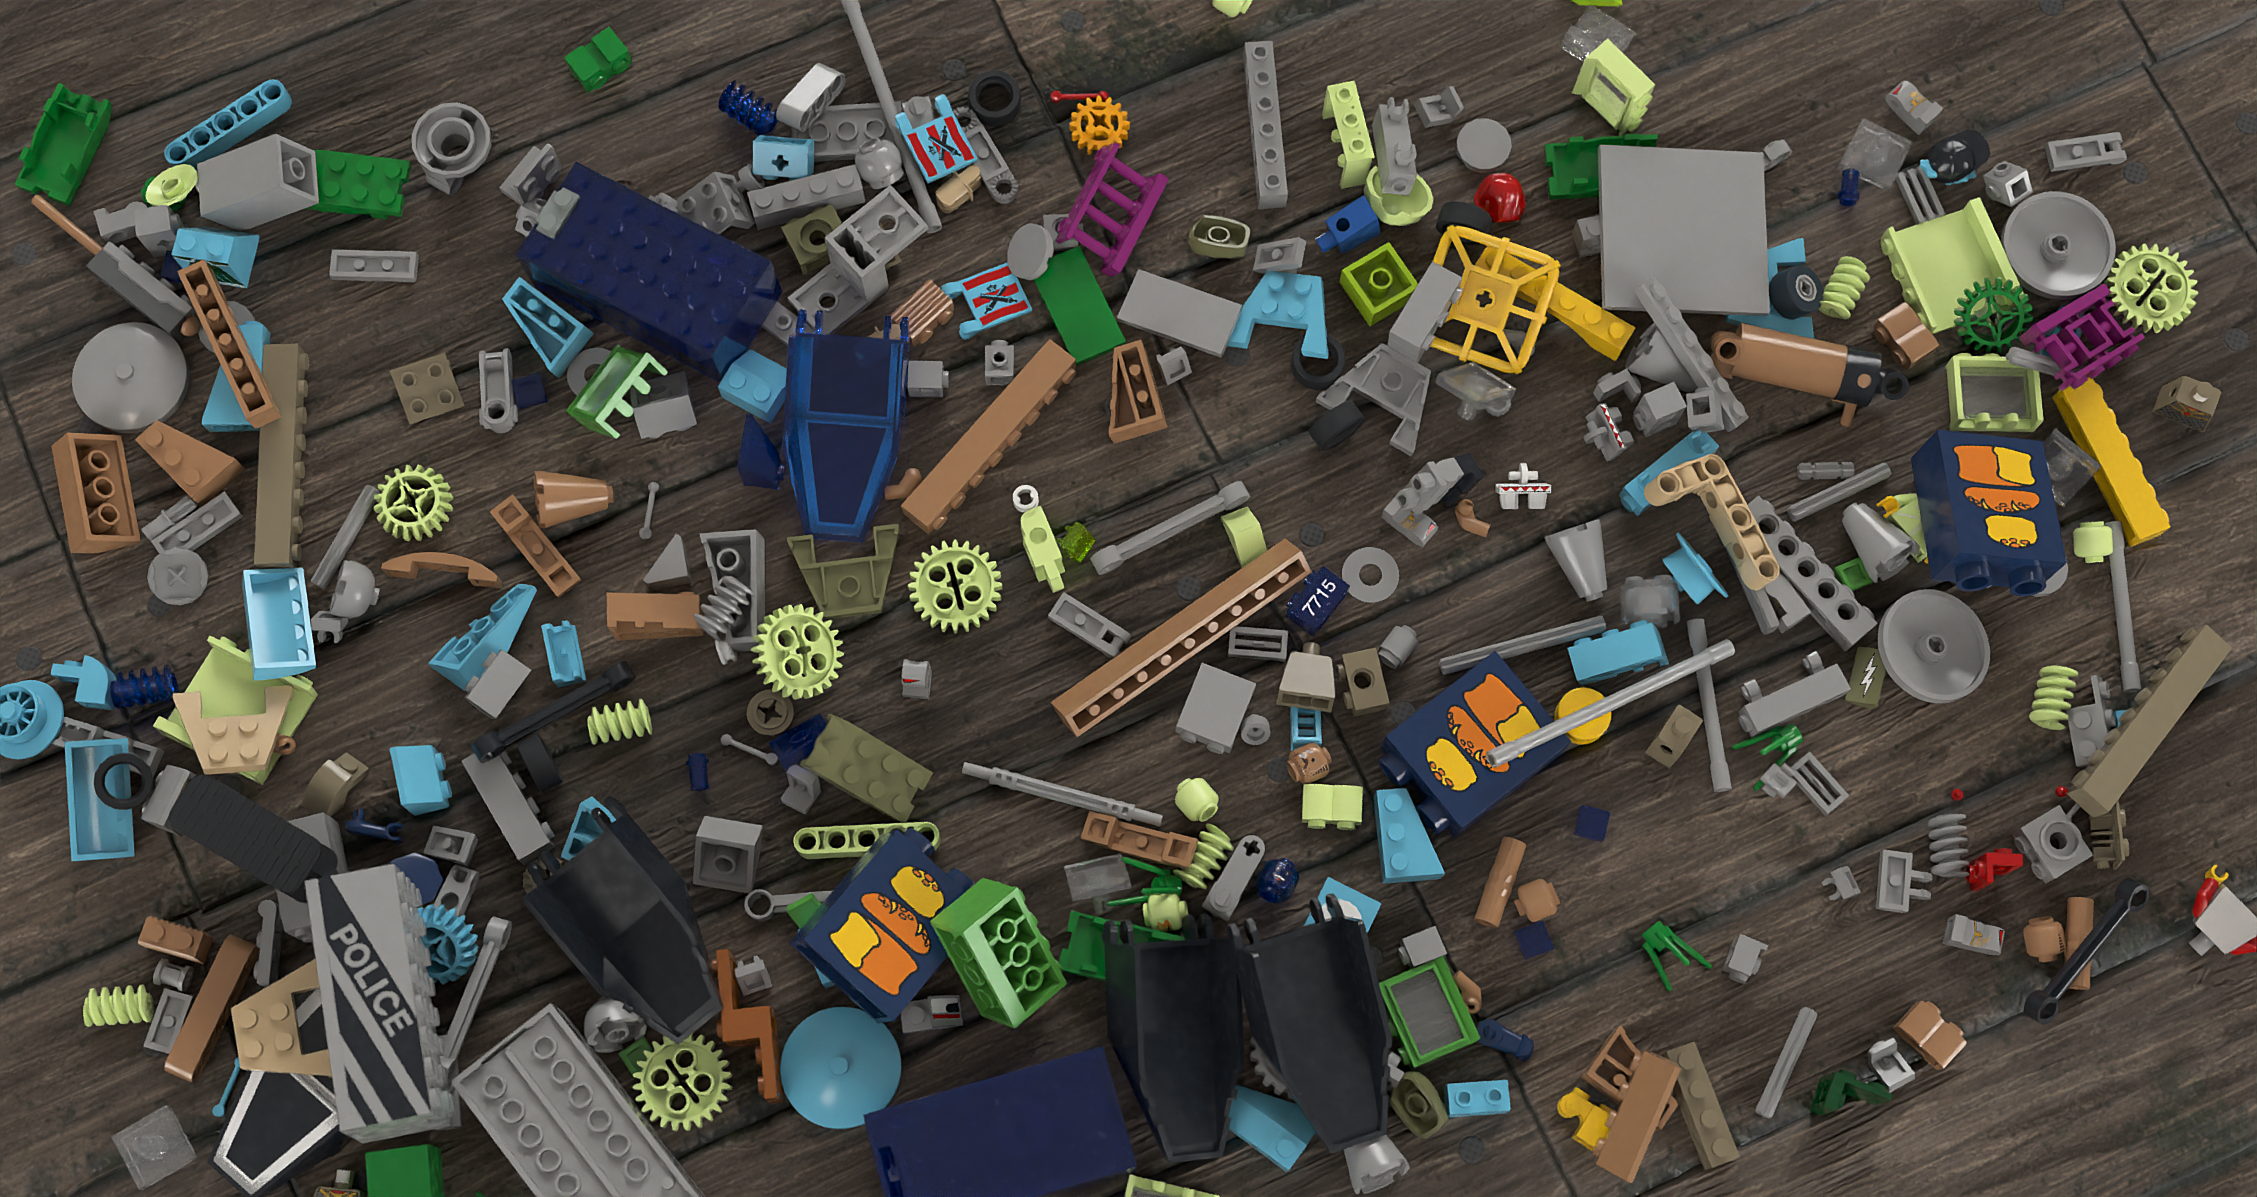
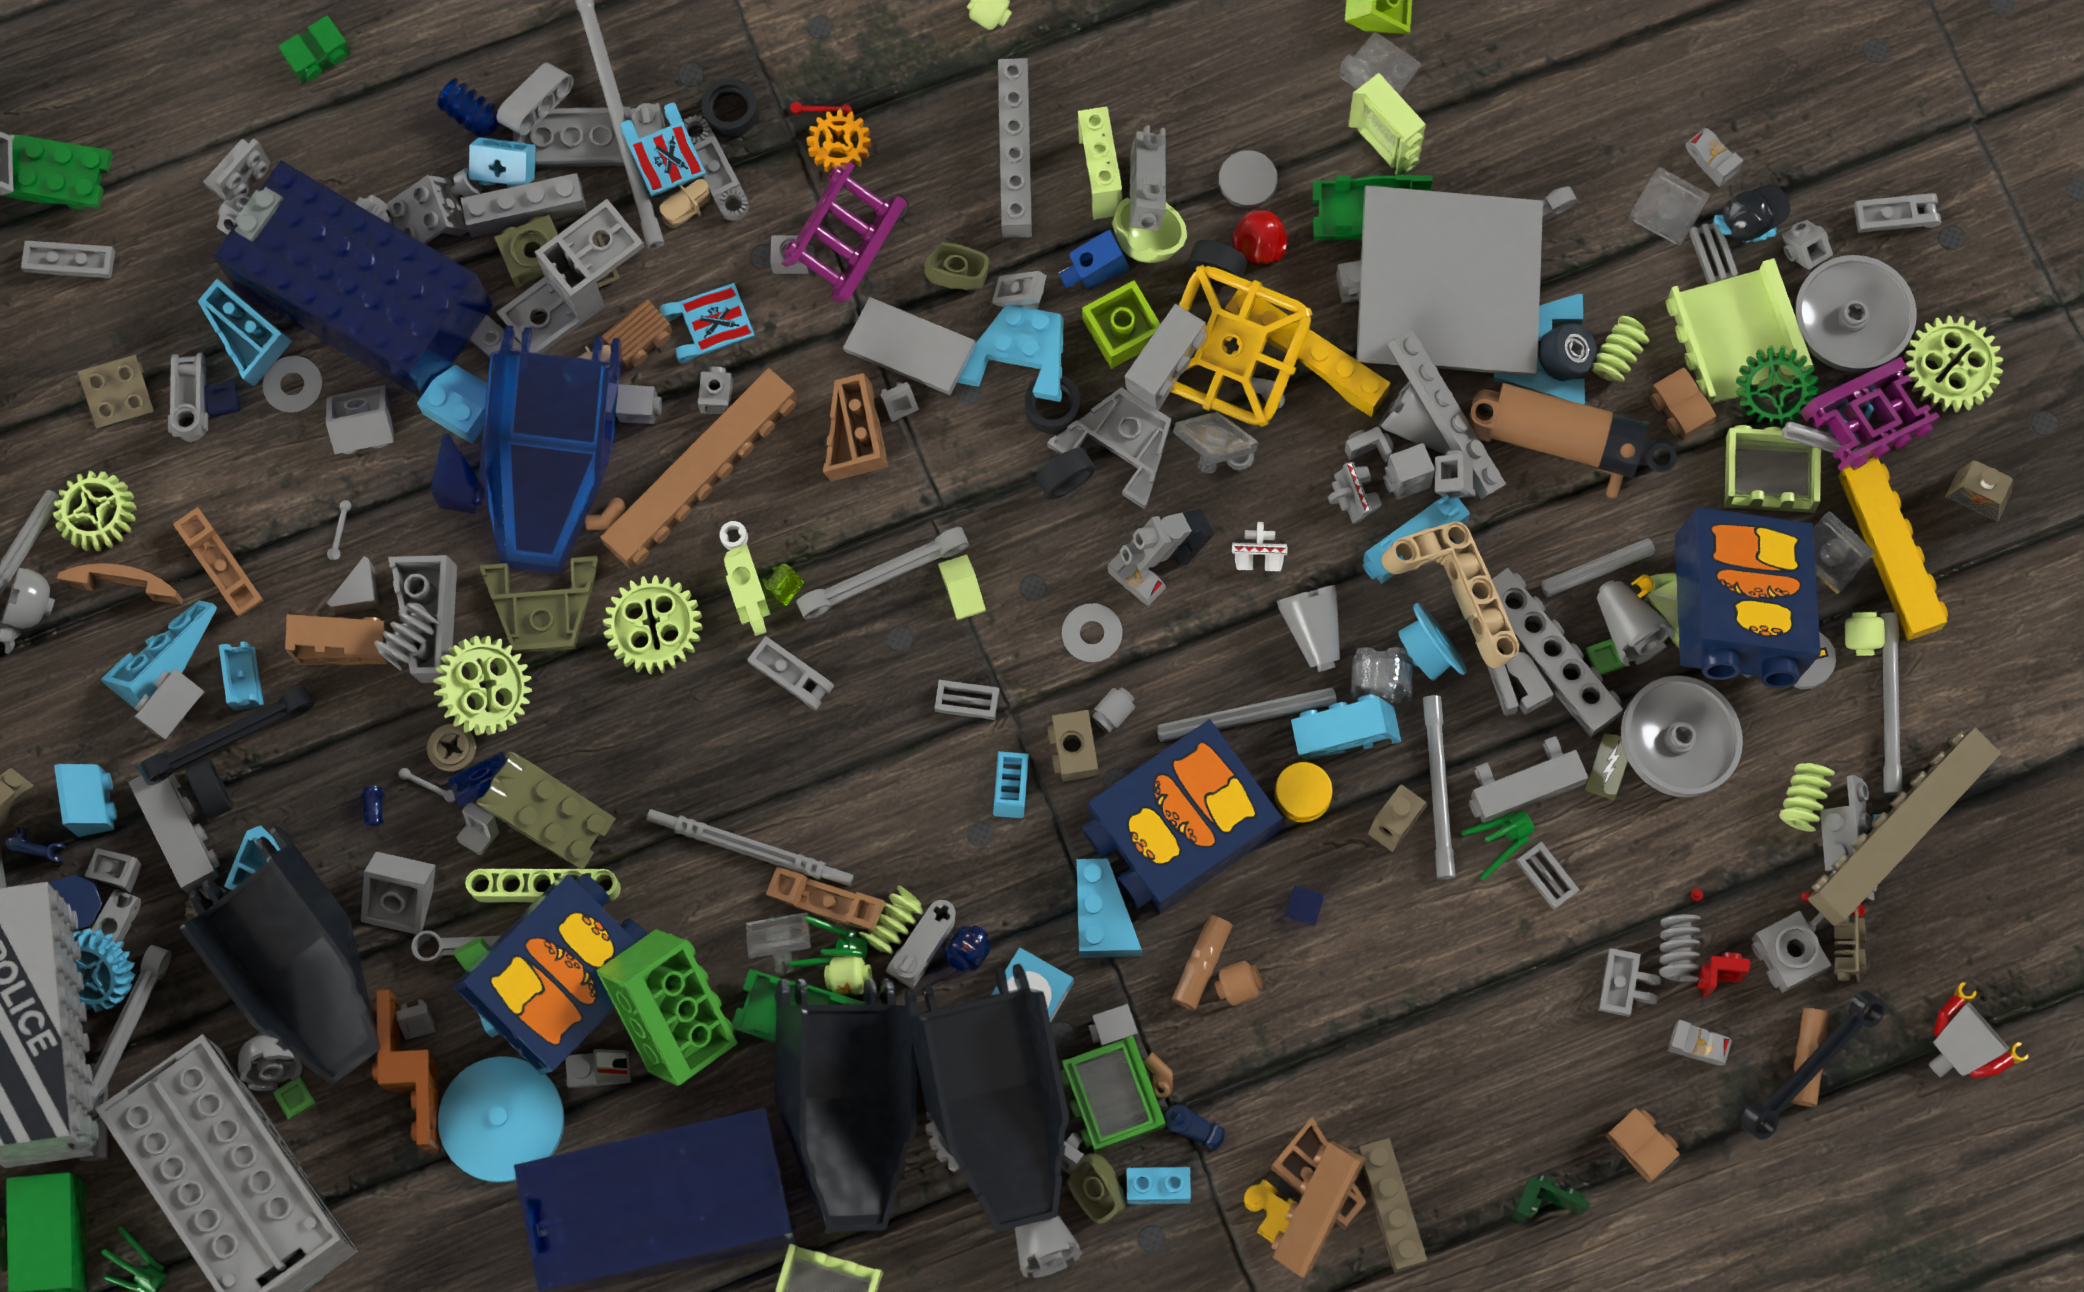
camera: 10 degrees right, 0 degrees up
(444, 129) = (142, 122): light grey piece -> none
(568, 497) = (255, 512): medium nougat cone -> none
(608, 387) = (303, 397): bright green window -> none
(619, 722) = (294, 749): yellowish green piece -> none
(660, 1098) = (313, 1140): yellowish green gear -> none
(725, 651) = (408, 682): white bush -> none
(879, 163) = (601, 172): light grey piece -> none
(916, 679) = (605, 720): light grey leg -> none
(1030, 251) = (754, 273): light grey tile -> none
(1078, 307) = (802, 333): green tile -> none
(1181, 637) = (885, 689): medium nougat brick -> none
(1196, 799) = (889, 860): yellowish green head -> none
(1215, 709) = (915, 766): light grey brick -> none
(1255, 729) = (956, 790): light grey tile -> none
(1270, 1126) = (939, 1202): medium azure wedge -> none
(1308, 680) = (1014, 741): torso -> none
(1308, 763) = (1009, 828): medium nougat head -> none
(1317, 601) = (1031, 657): clear blue brick -> none
(1332, 805) = (1031, 873): yellowish green brick -> none
(1439, 108) = (1202, 138): light grey bracket -> none
(1467, 519) = (1199, 579): medium nougat arm -> none
(1511, 749) = (1216, 822): light grey piece -> none
(1534, 940) = (1233, 1025): clear blue tile -> none
(1660, 937) = (1366, 1028): green plant -> none
(1743, 958) = (1452, 1055): light grey brick -> none
(1778, 780) = (1504, 870): light grey gear -> none
(1786, 1062) = (1489, 1166): light grey axle -> none
(1825, 470) = (1585, 544): light grey axle -> none
(1844, 882) = (1566, 980): light grey tile -> none
(1849, 188) = (1635, 249): clear blue pin -> none
(1889, 1065) = (1596, 1173): light grey bracket -> none
(2044, 938) = (1773, 1050): medium nougat head -> none

